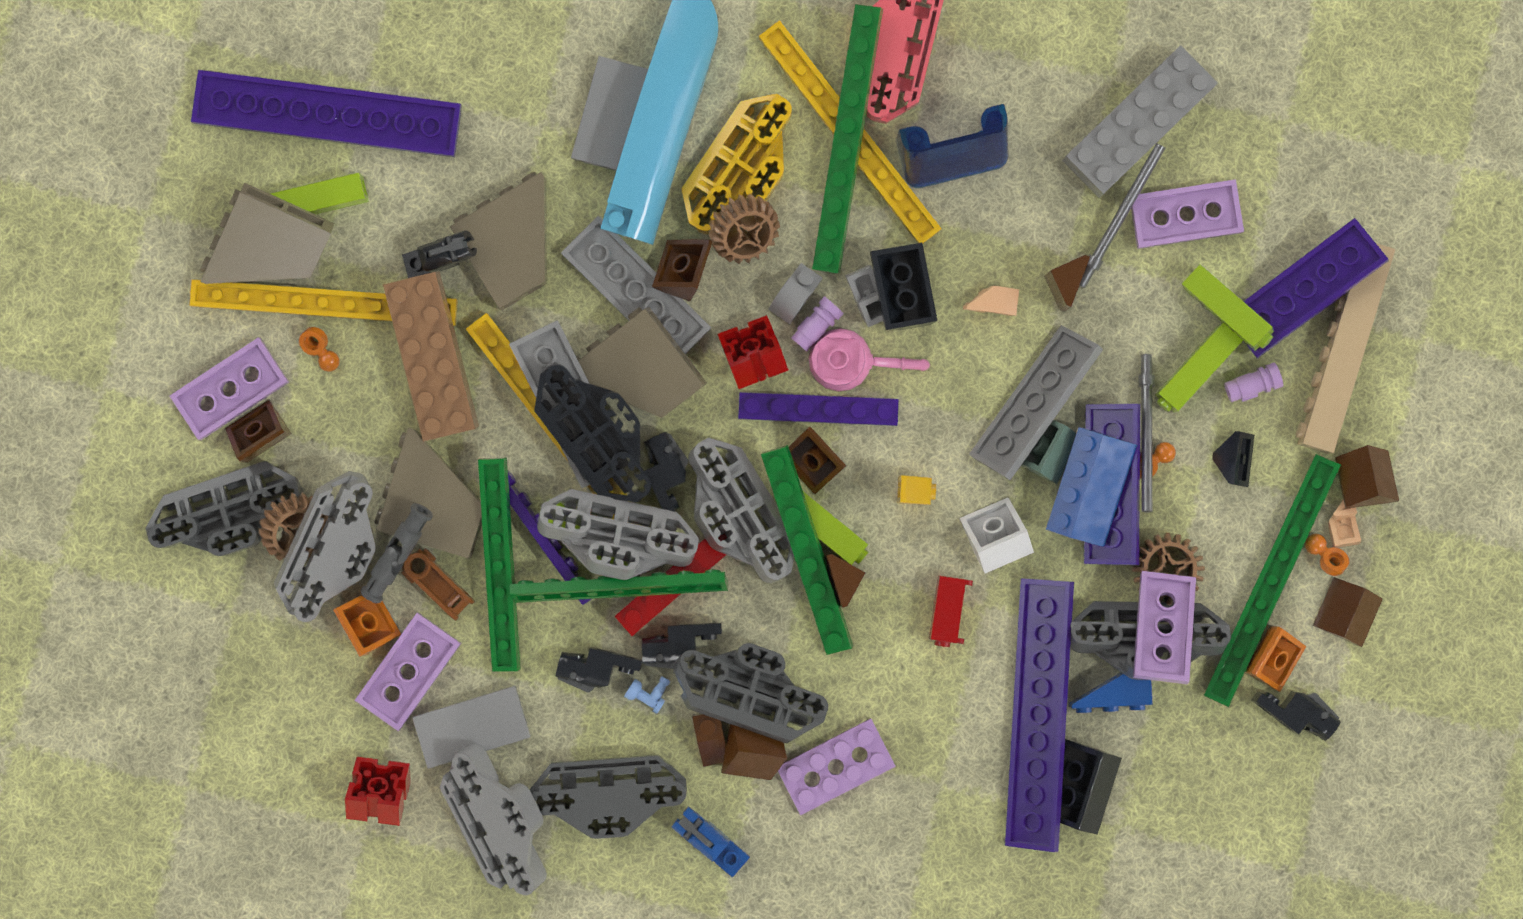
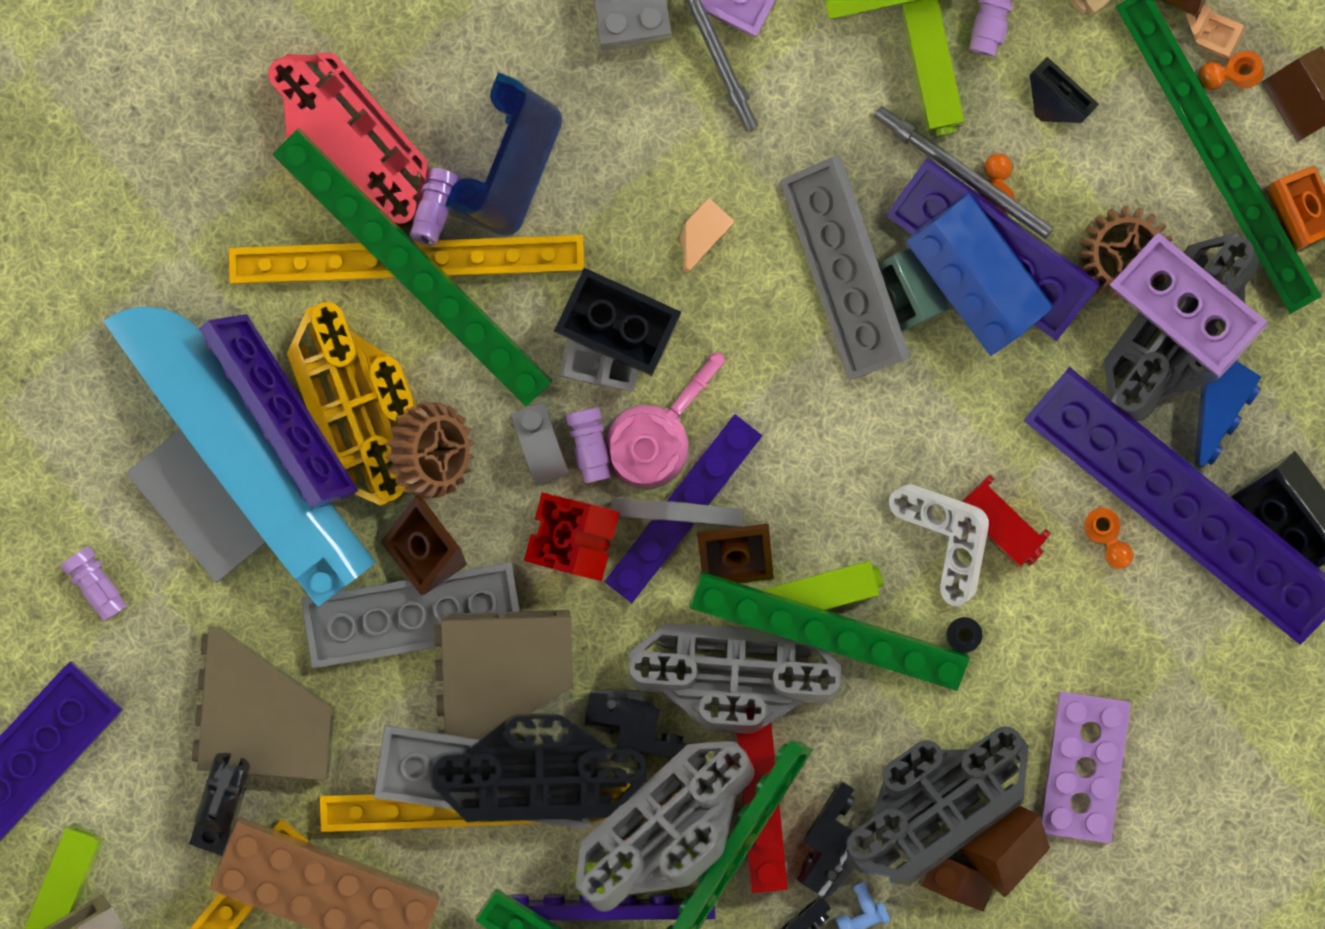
camera: 55 degrees left, 0 degrees up
(518, 84) = (94, 584): none -> lavender axle
(702, 119) = (278, 410): none -> dark purple plate
(814, 406) = (678, 512): none -> light grey beam
(845, 578) = (889, 611): reddish brown slope -> none
(863, 643) = (953, 630): none -> black plate
(888, 126) = (431, 209): none -> lavender axle
(915, 490) = (848, 466): yellow slope -> none
(924, 583) = (955, 528): none -> white beam
(980, 694) = (1118, 553): none -> orange plate
(997, 535) = (958, 413): white slope -> none
(1066, 280) = (738, 142): reddish brown slope -> none

